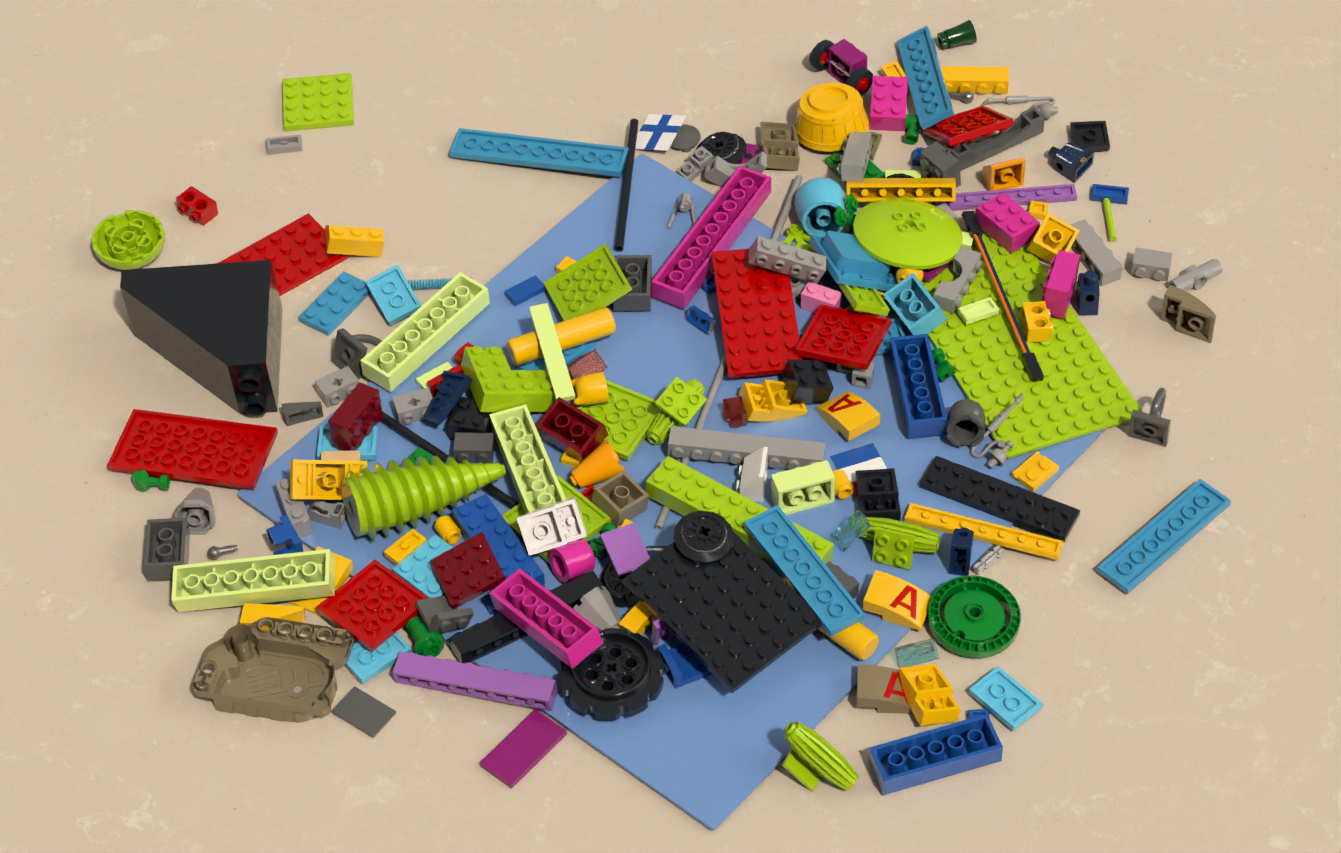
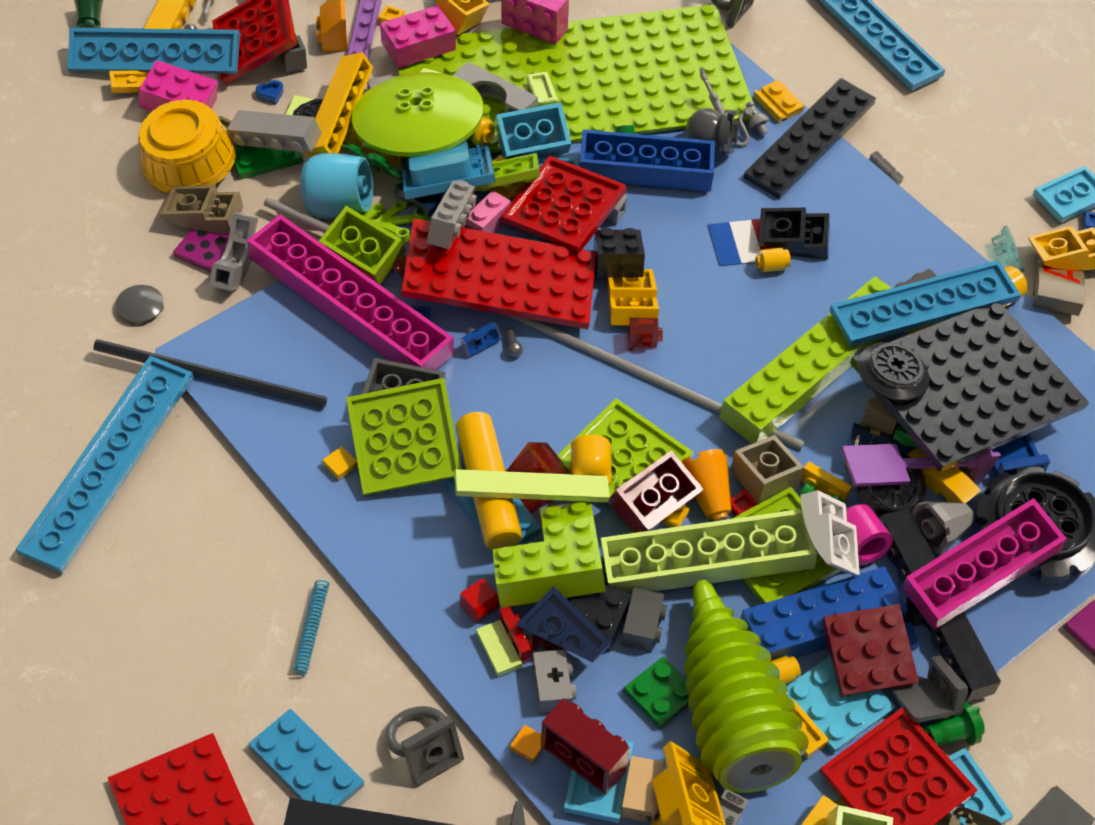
camera: 85 degrees left, 5 degrees up
(336, 386) = (479, 793): light grey brick -> none
(354, 240) = (194, 715): yellow slope -> none
(393, 295) = (326, 679): medium azure plate -> none
(420, 442) = (651, 657): black piece -> none
(425, 332) = (423, 644): yellowish green brick -> none
(475, 681) = (1027, 682): medium lavender brick -> none
(525, 290) = (367, 519): blue tile -> none
(659, 131) = (120, 322): sticker -> none
(677, 408) = (634, 382): lime plate -> none
(684, 204) = (274, 317): light grey plant -> none
(696, 163) = (200, 296): light grey slope -> none
(700, 341) = (514, 348): none -> flat silver piece
(725, 145) = (181, 283): black piece -> none
(733, 447) = (707, 335): light grey brick -> none
(754, 475) = (754, 329): white slope -> none
(762, 221) = (363, 244): none -> lime brick
(803, 487) = (784, 289): yellowish green brick -> none
(844, 63) = (99, 115): brick -> none
(849, 415) = (672, 230): yellow slope -> none
(850, 530) = (850, 261): clear light blue plate -> none
(896, 600) = (945, 248): yellow slope -> none
(898, 540) = (868, 220): lime plate -> none
(912, 125) = (236, 90): green leg -> none
(939, 163) = (310, 70): dark grey brick -> none
(961, 543) = (889, 176): dark blue torso -> none
(970, 598) = (966, 192): green piece -> none
(984, 531) = (853, 159): yellow tile -> none
(1029, 359) = (624, 65): piece -> none
(1036, 321) = (576, 46): yellow brick -> none

